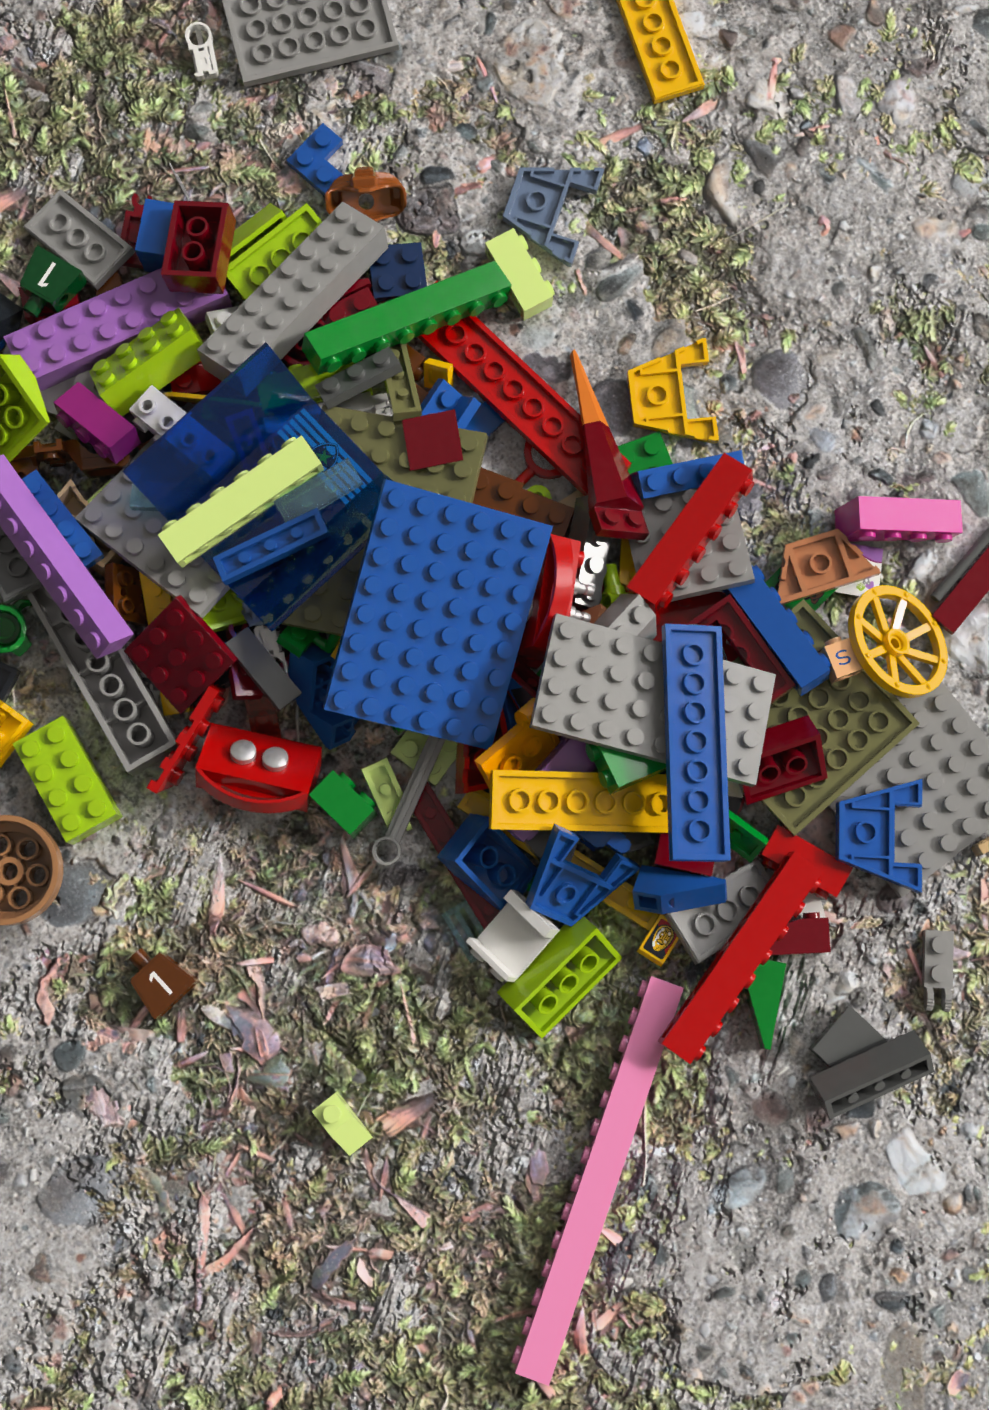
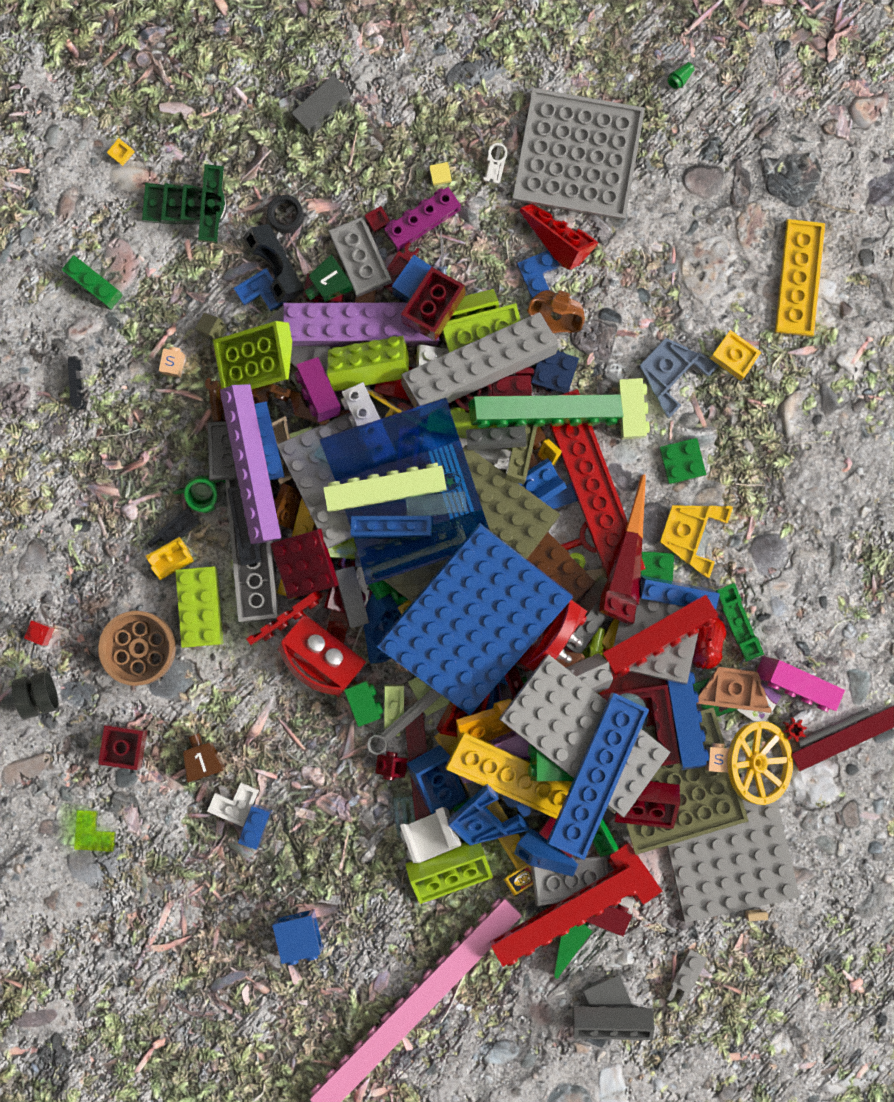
camera: 25 degrees right, 5 degrees up
(45, 1013) = (122, 747): none -> dark red brick
(52, 1158) = (87, 835): none -> clear neon green plate
(81, 184) = (377, 219): none -> dark red plate
(98, 672) = (248, 552): none -> black plate
(137, 94) = (440, 173): none -> light yellow tile
(139, 157) = (423, 218): none -> magenta brick
(239, 1026) = (236, 809): none -> white plate
(273, 1037) = (255, 826): none -> blue brick
(337, 111) = (563, 243): none -> red wedge
(342, 1123) = (273, 898): yellowish green slope -> none
(398, 1158) = (298, 937): none -> blue brick
(418, 870) = (391, 765): none -> dark red brick
(432, 440) = (523, 503): dark red sticker -> none
(614, 312) = (682, 461): none -> green plate
(618, 150) = (735, 355): none -> yellow plate
(760, 524) = (709, 646): none -> red hair
(783, 480) = (739, 623): none -> green slope
(868, 834) = (682, 874): blue wing -> none
(926, 576) = (788, 726): none -> red gear

